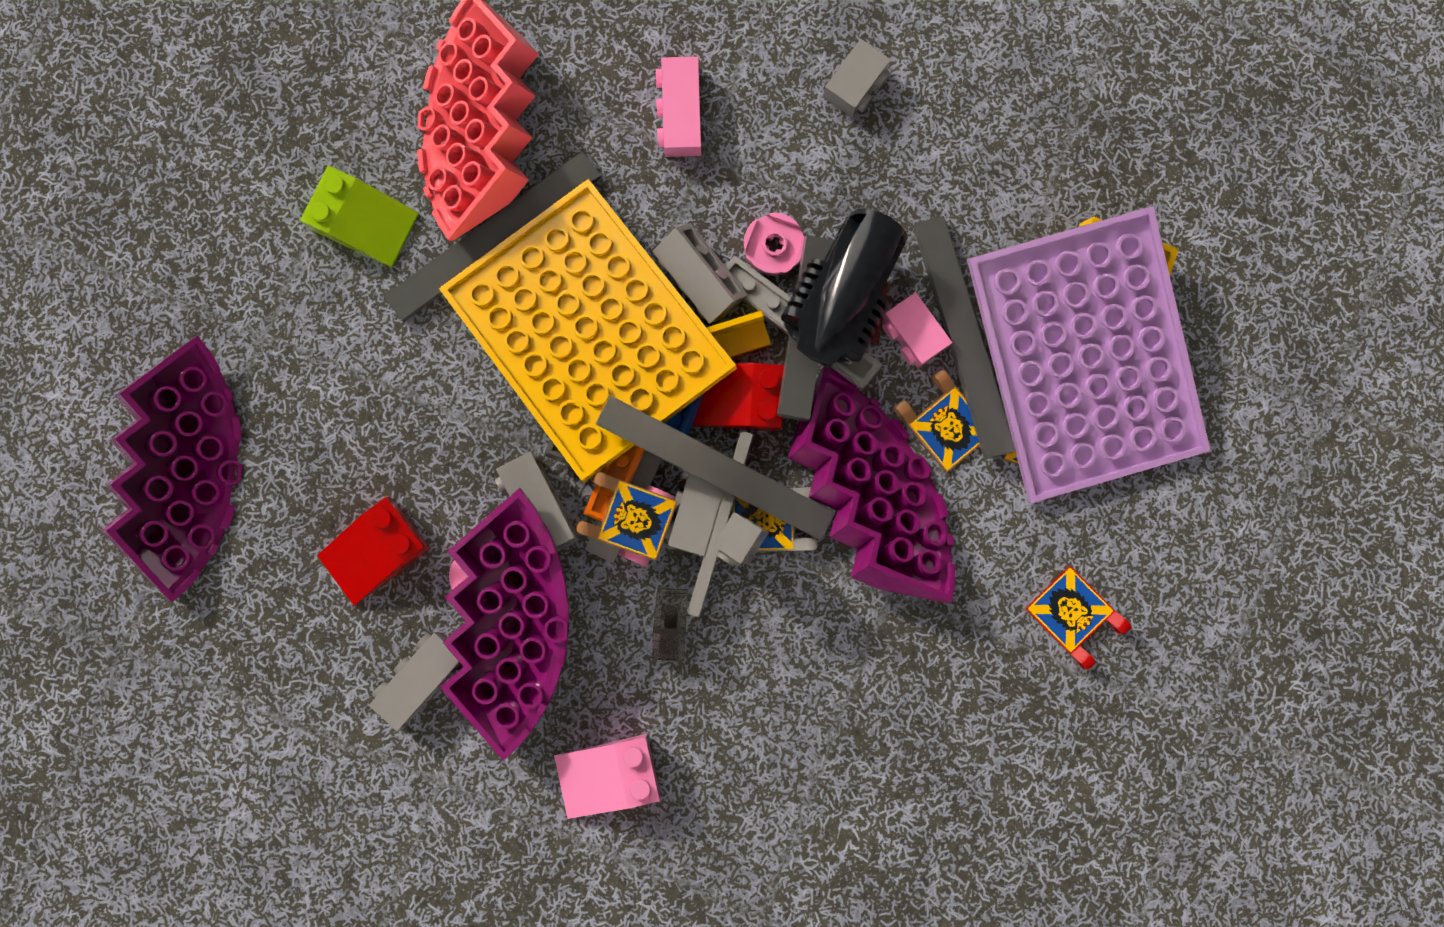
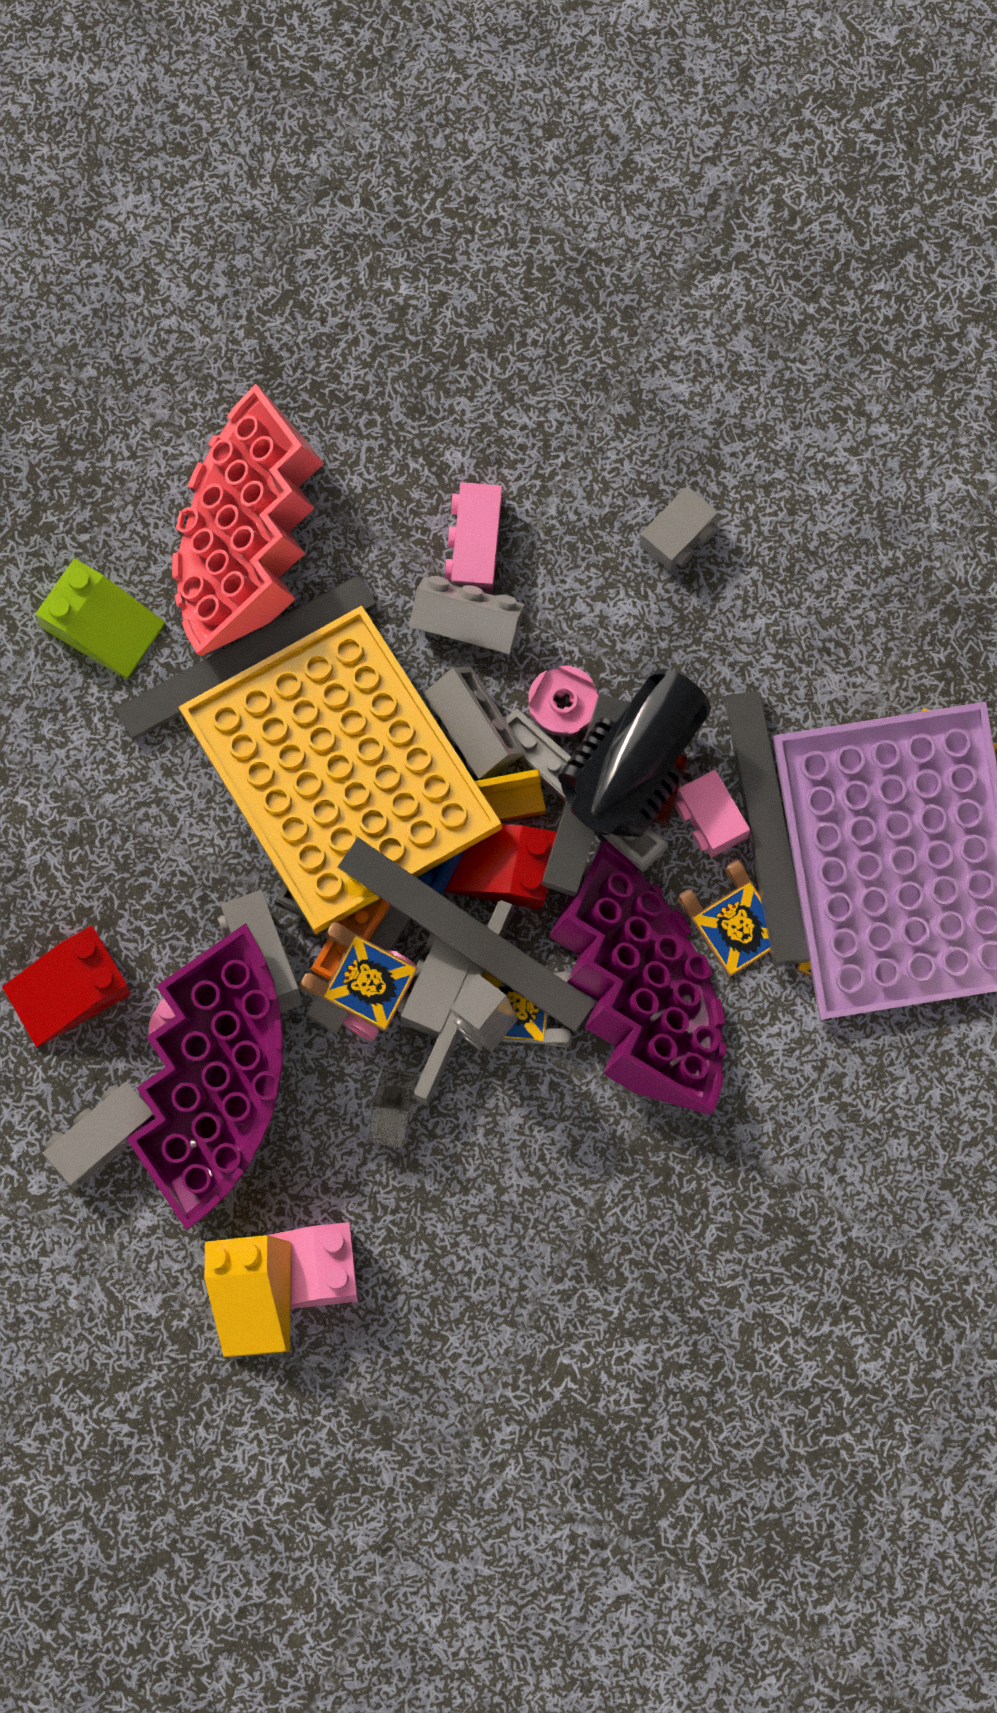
camera: 10 degrees right, 10 degrees down
(567, 808) = (250, 1293): none -> yellow slope
(681, 176) = (466, 614): none -> light grey brick
(1072, 612) = (856, 1148): flag -> none

